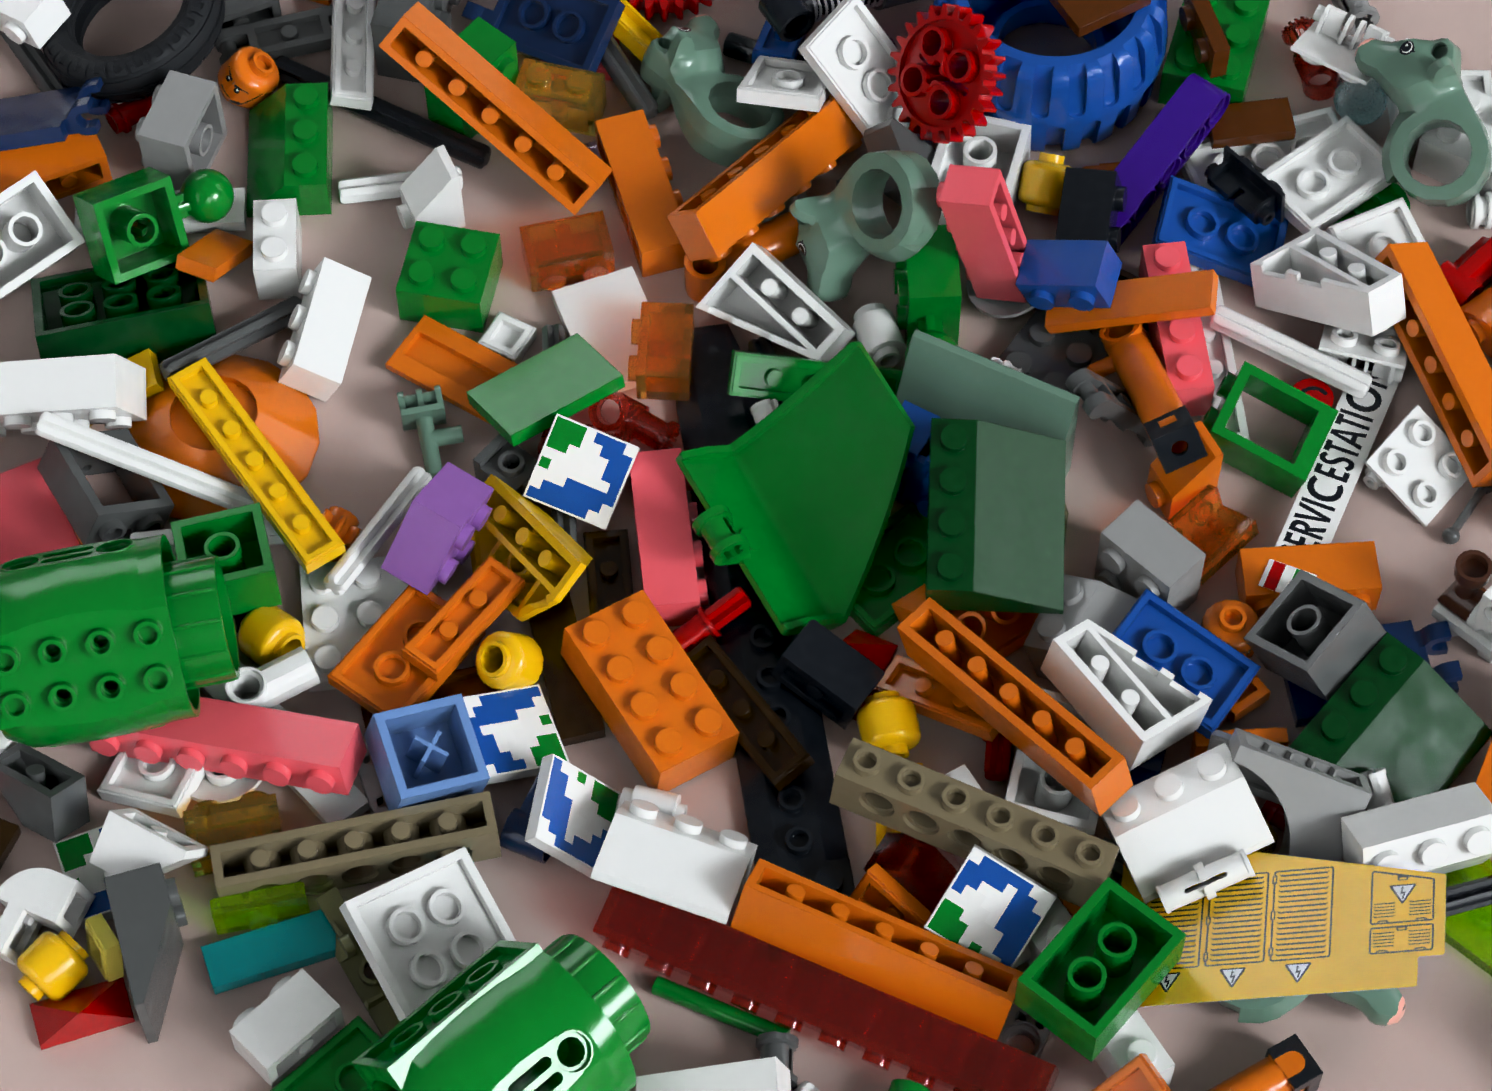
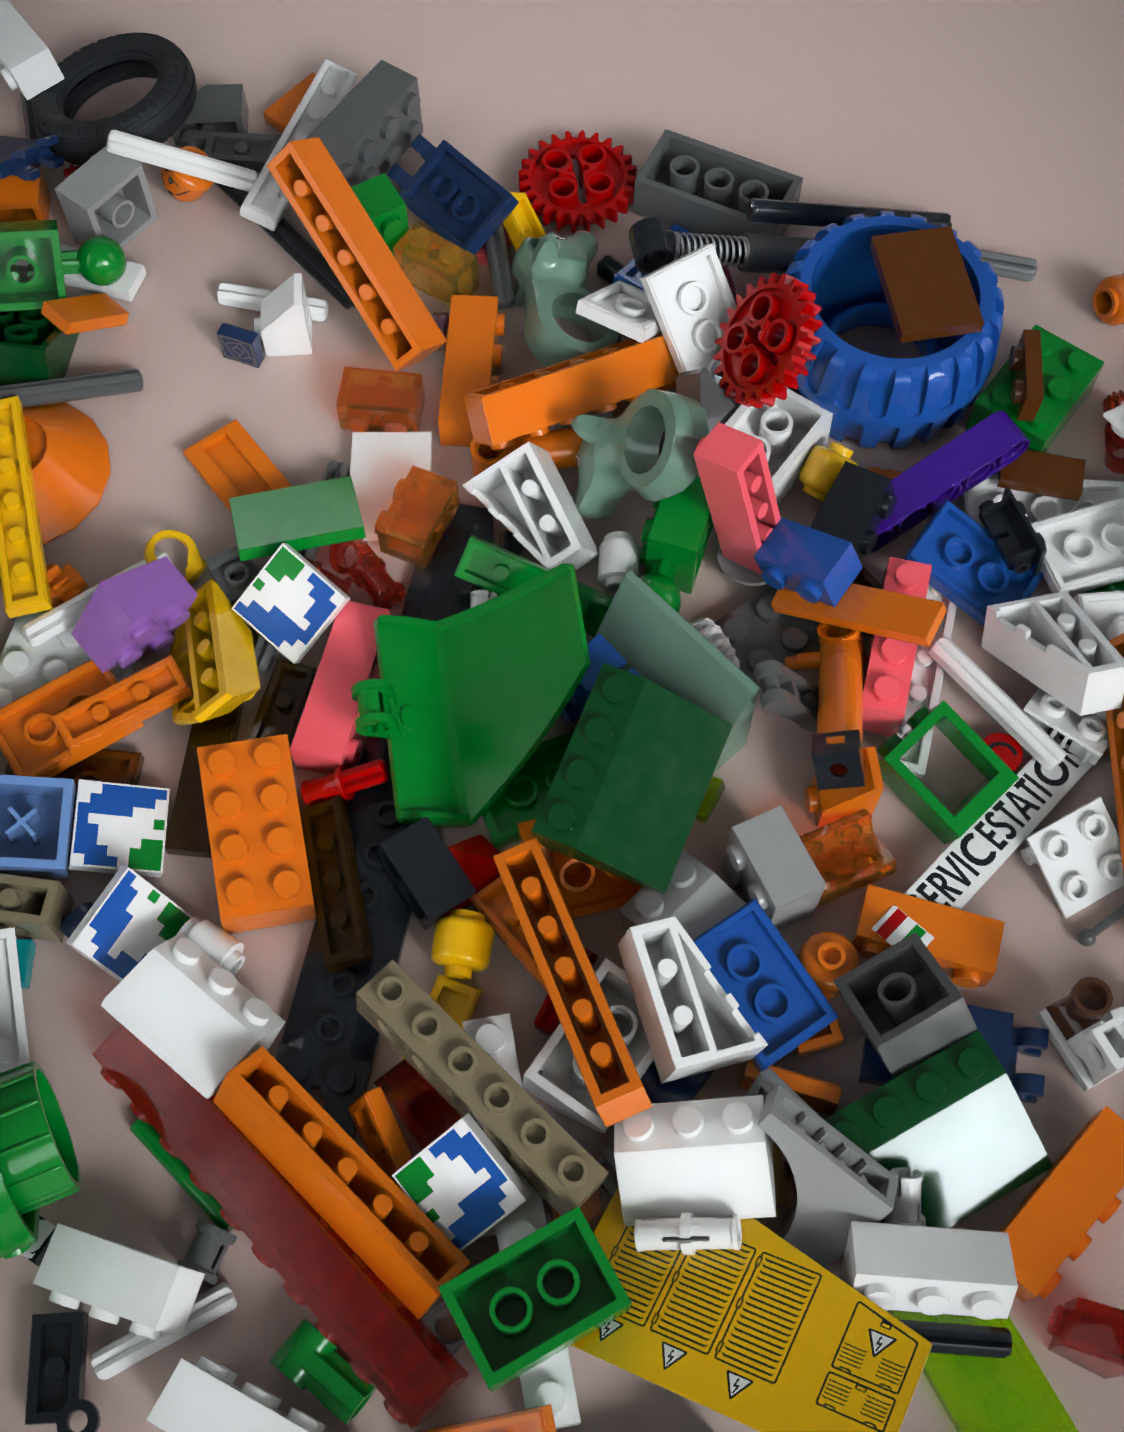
camera: 20 degrees right, 5 degrees up
(252, 65) = (180, 160): none -> white axle
(277, 248) = (140, 323): white brick -> none
(292, 148) = (197, 249): green slope -> none
(323, 329) = (140, 403): white brick -> none
(390, 237) = (240, 345): none -> dark blue tile
(413, 475) = (195, 563): none -> yellow piece
(422, 413) = (188, 510): sand green arm -> none
(449, 276) = (270, 391): green brick -> none
(509, 337) = (298, 462): white tile -> none
(509, 660) = (148, 758): yellow head -> none

